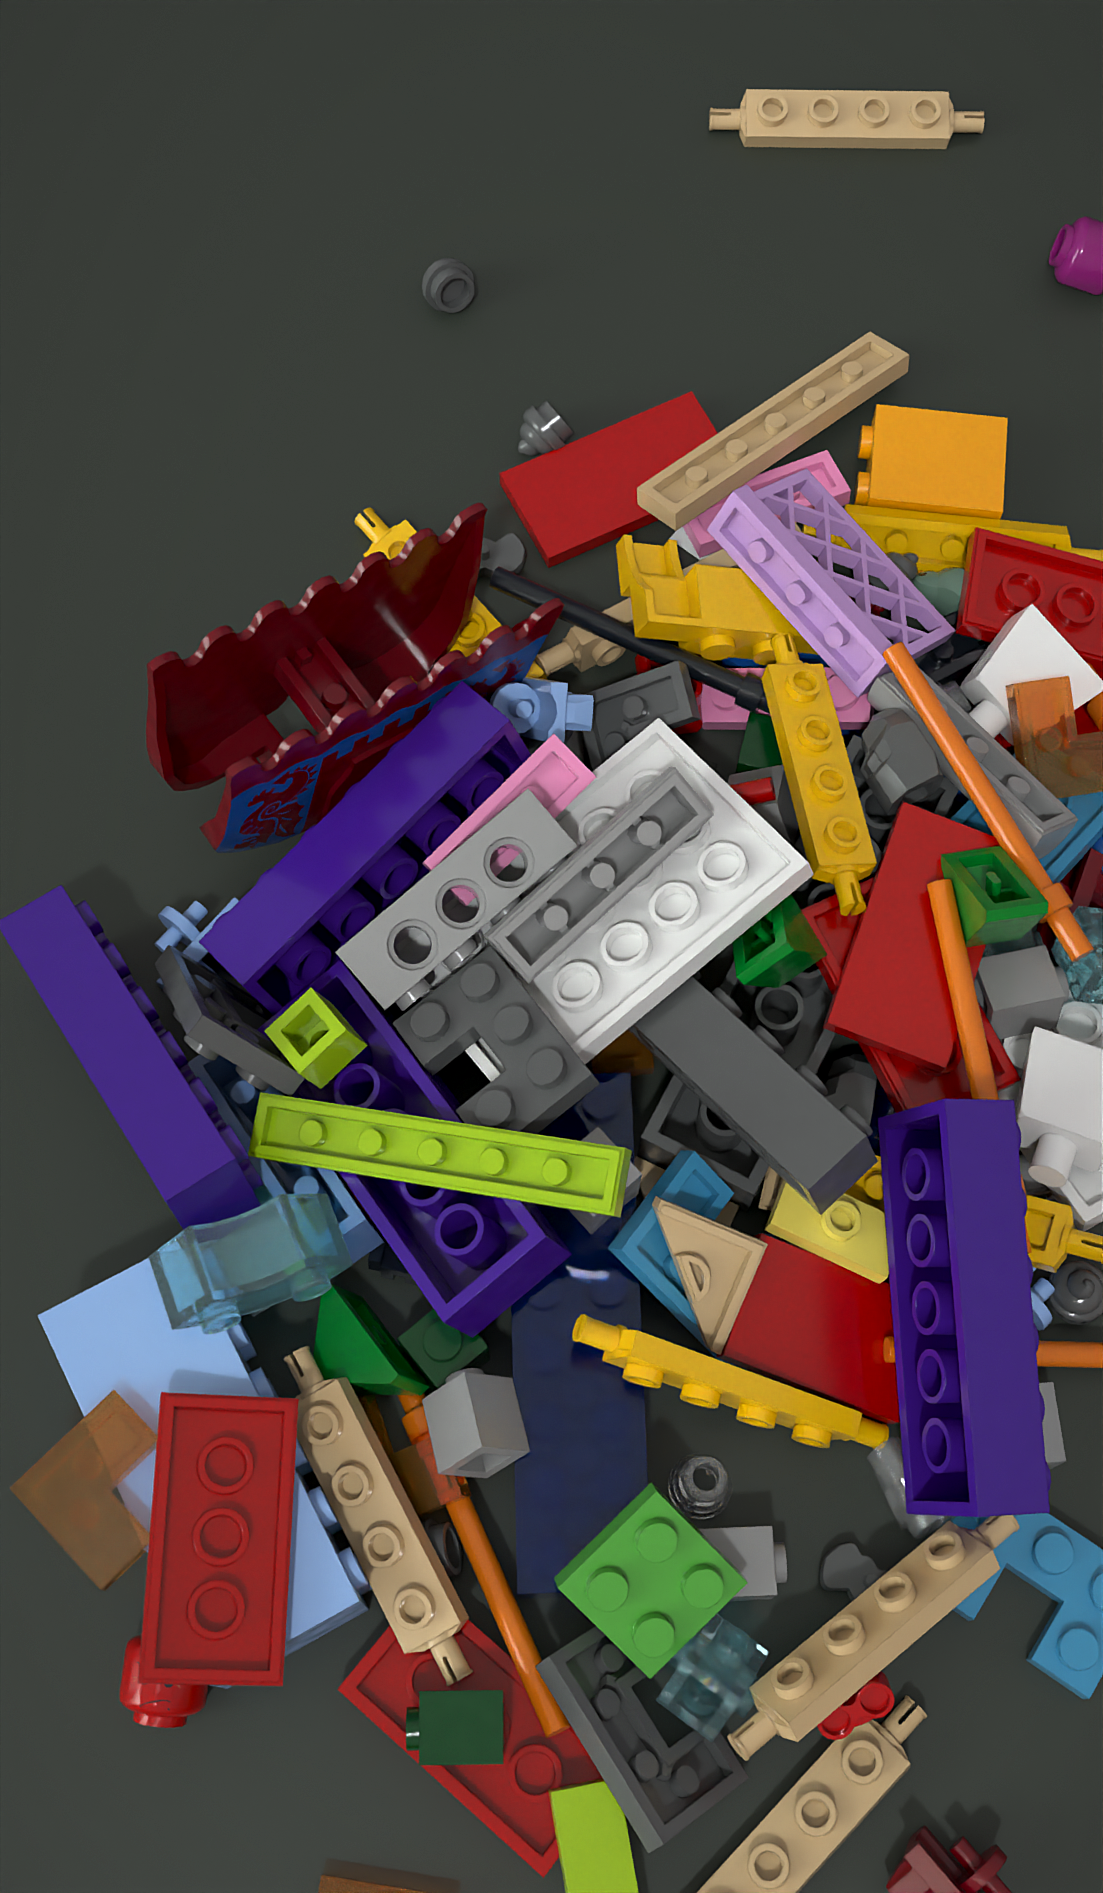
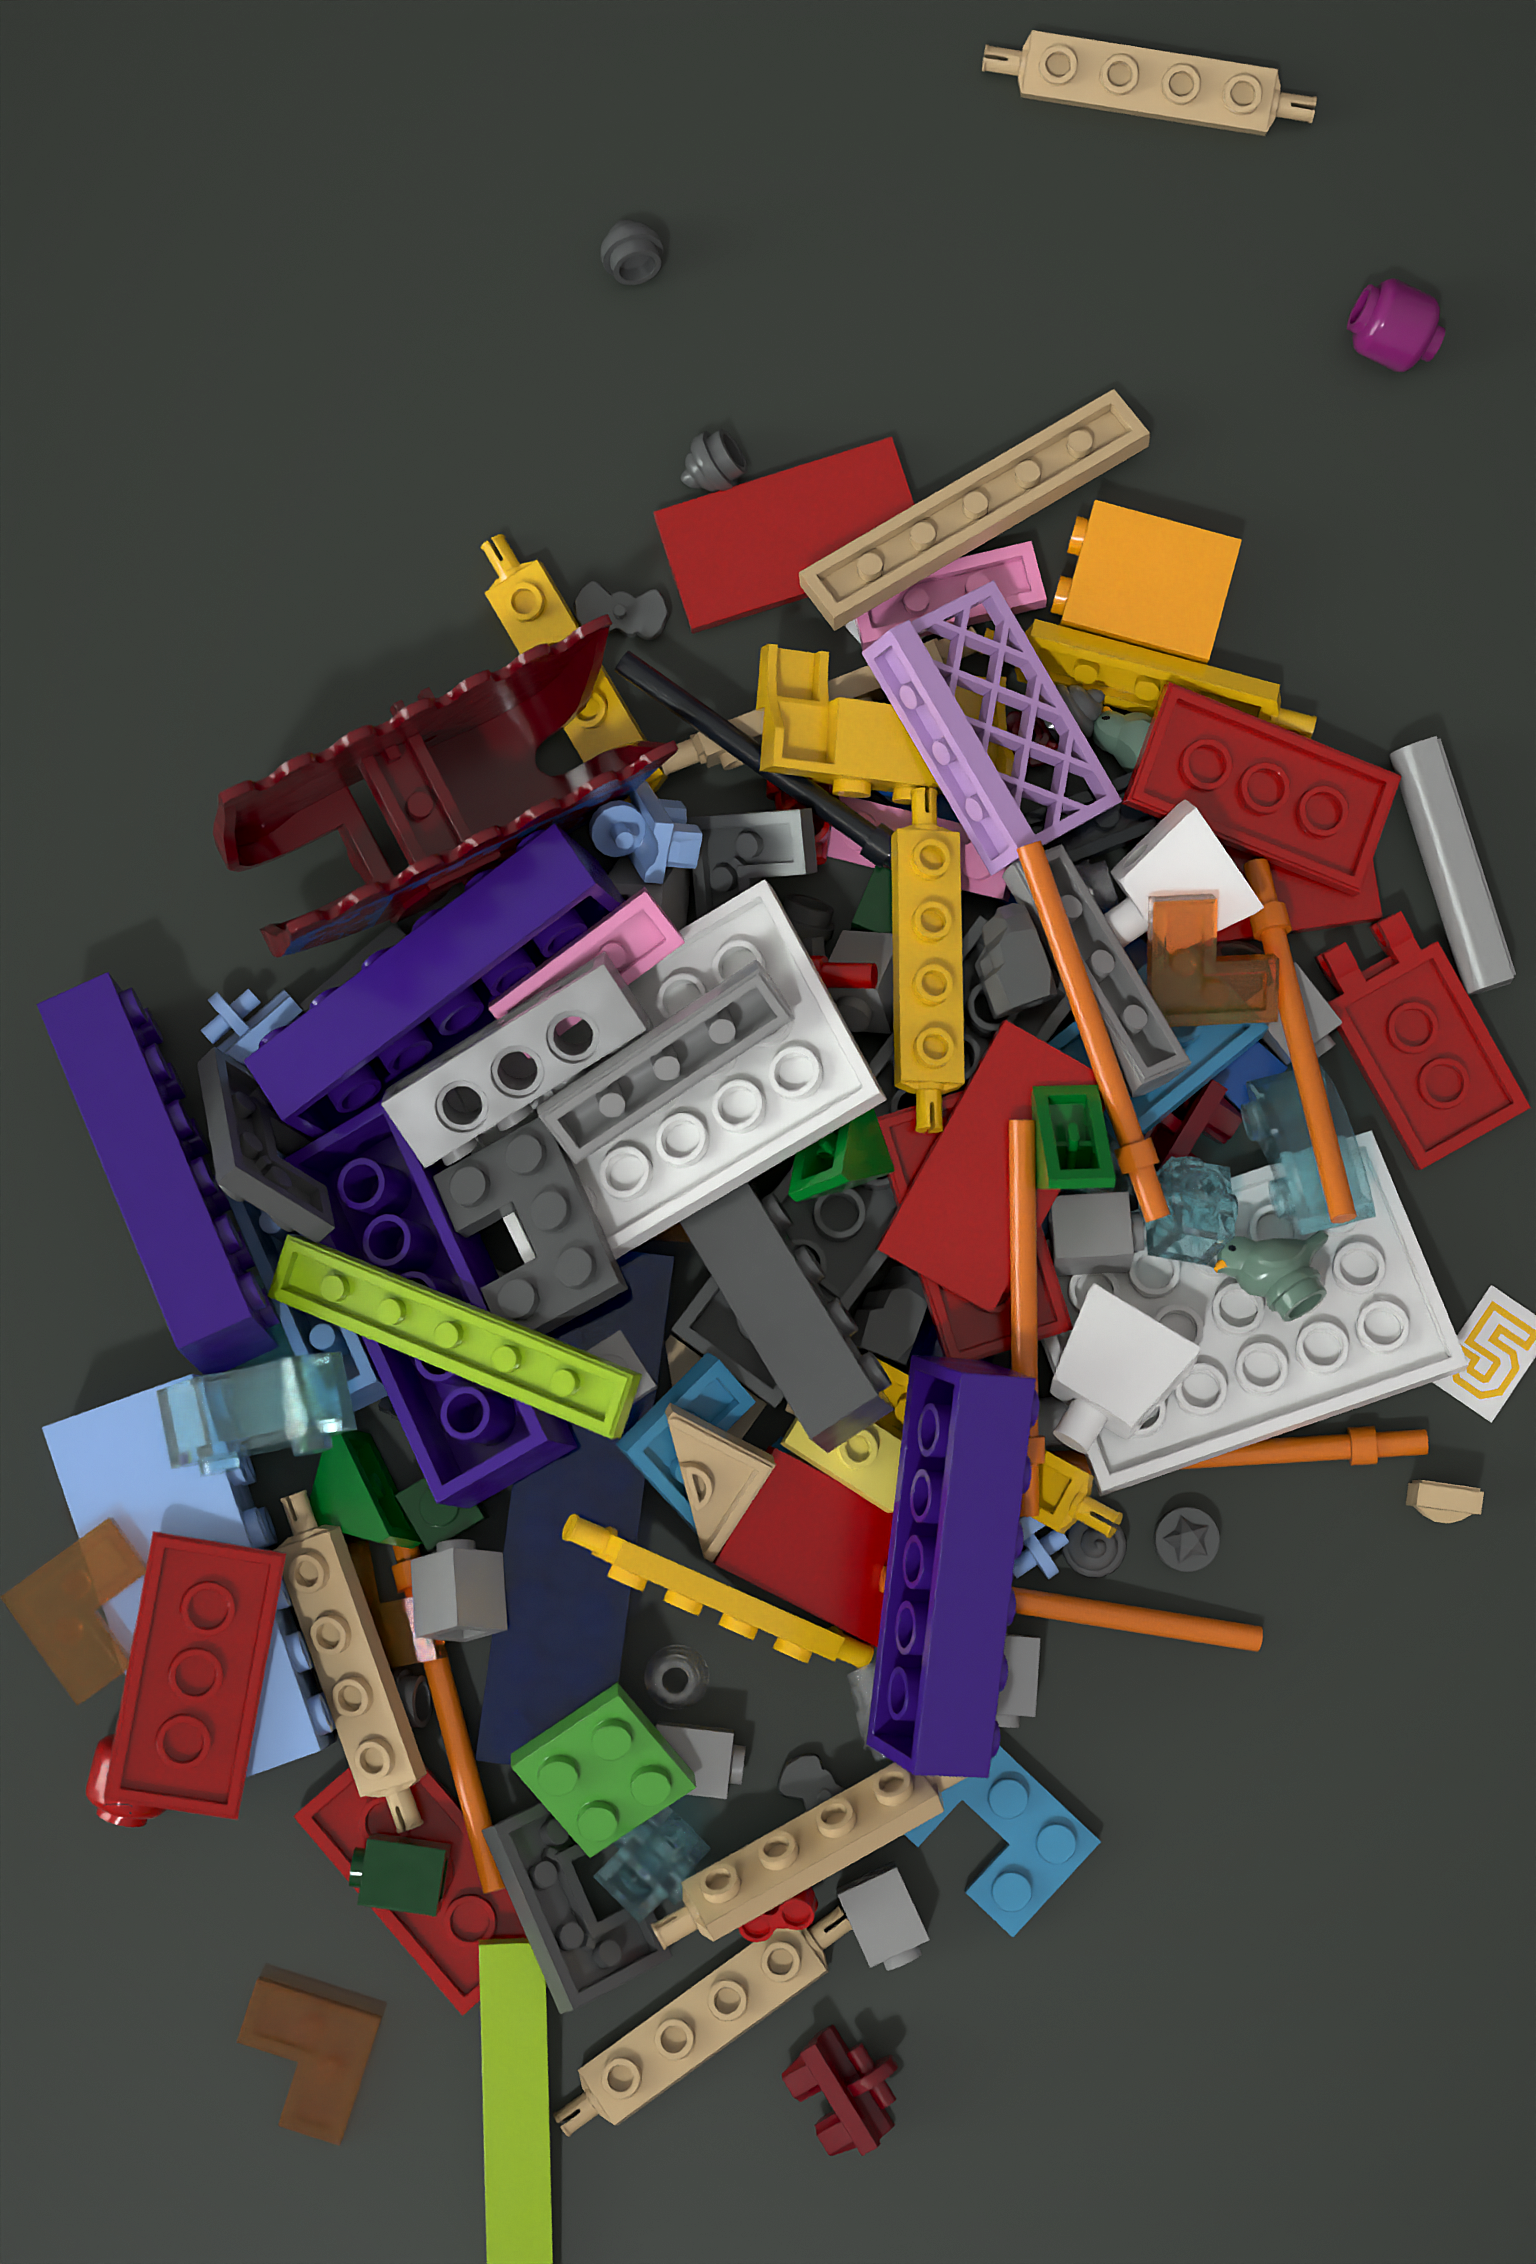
camera: 10 degrees right, 15 degrees up
(315, 1038) = (334, 1184): lime plate -> none
(957, 1697) = (883, 1917): none -> light grey brick

